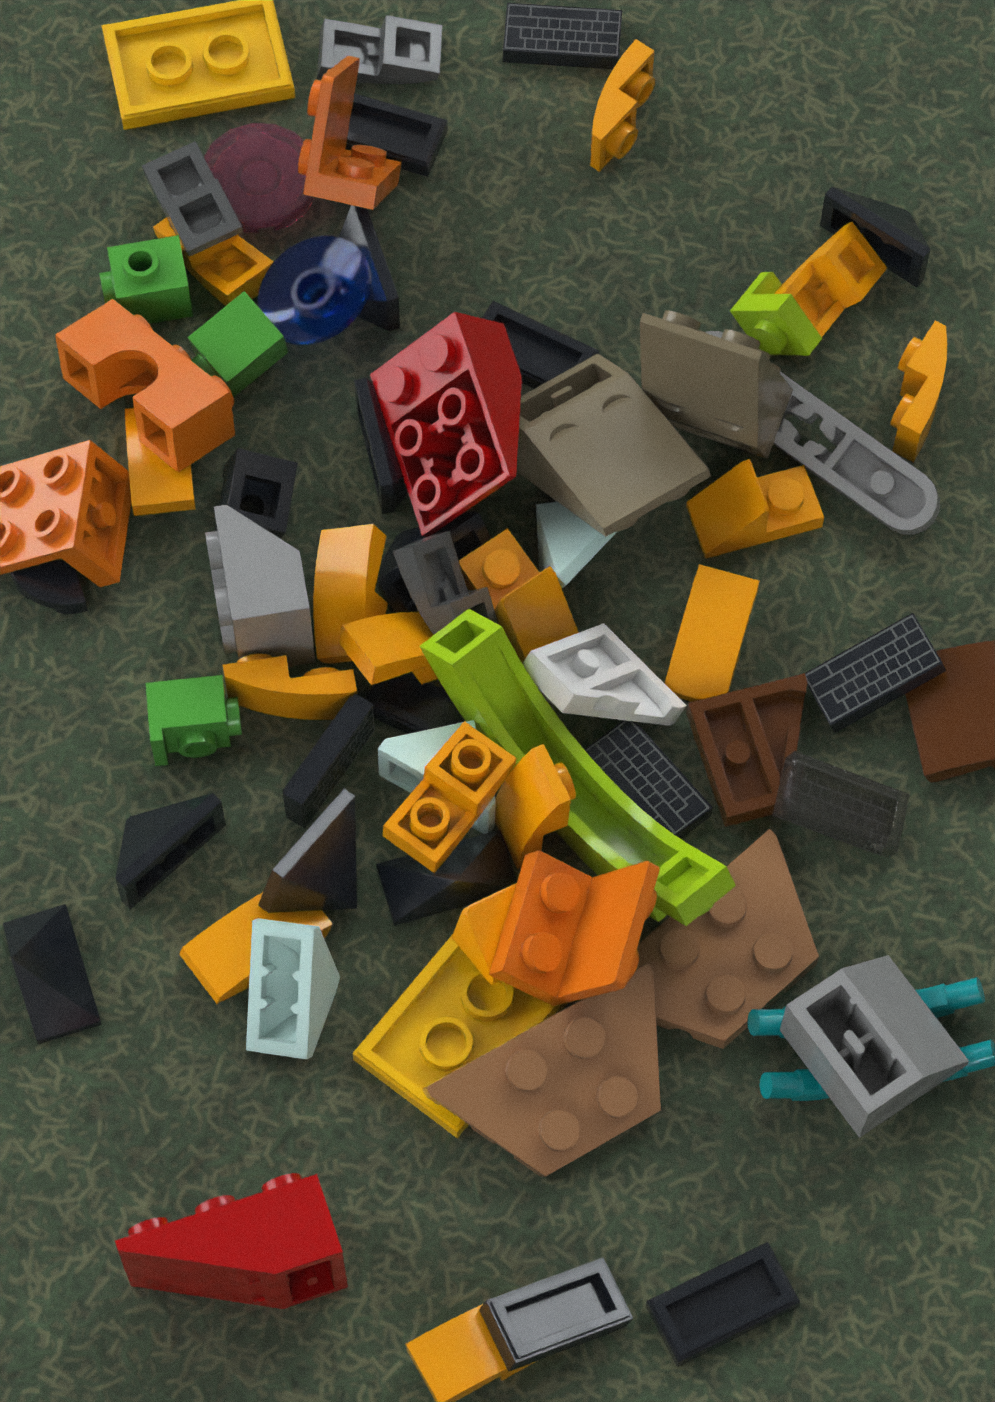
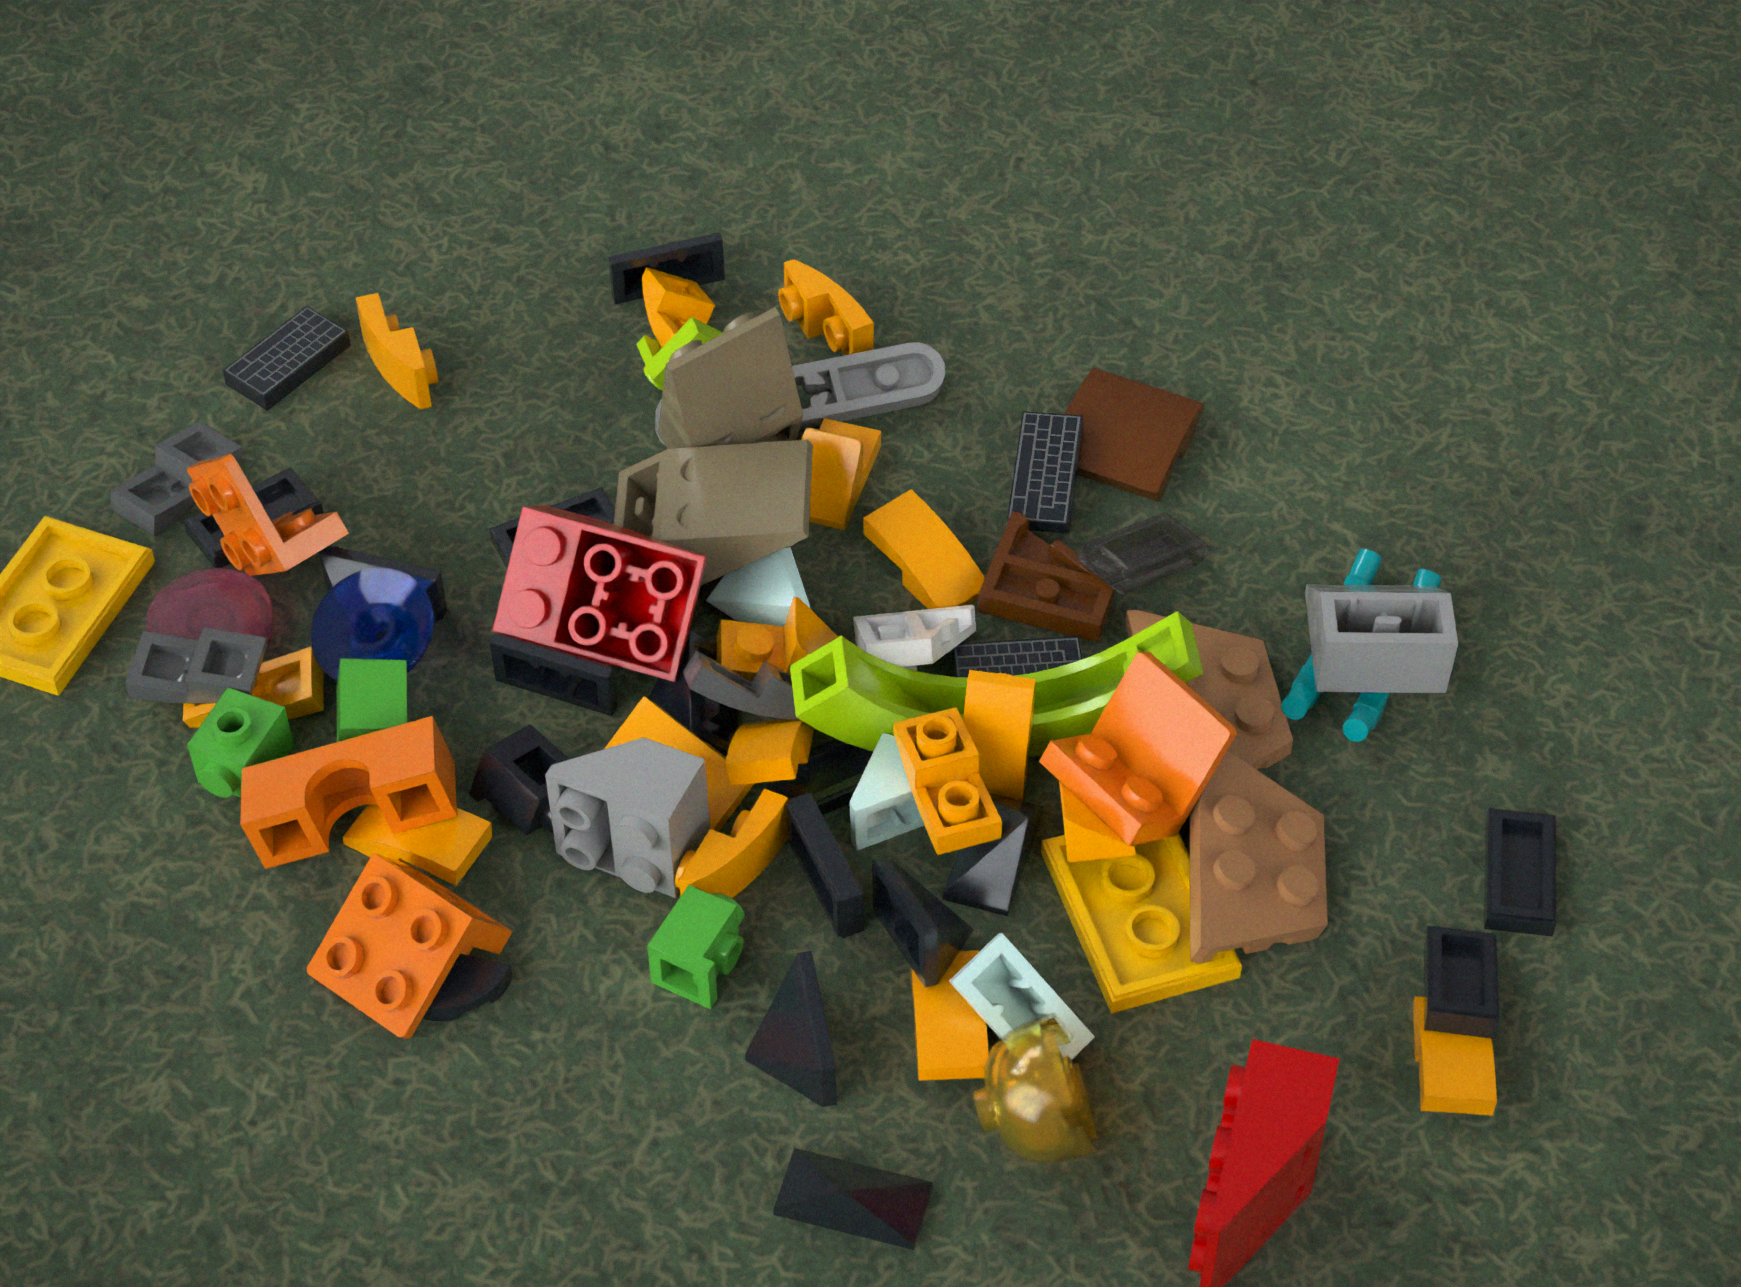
camera: 55 degrees left, 15 degrees down
(212, 1052) = (1037, 1095): none -> clear yellow cylinder

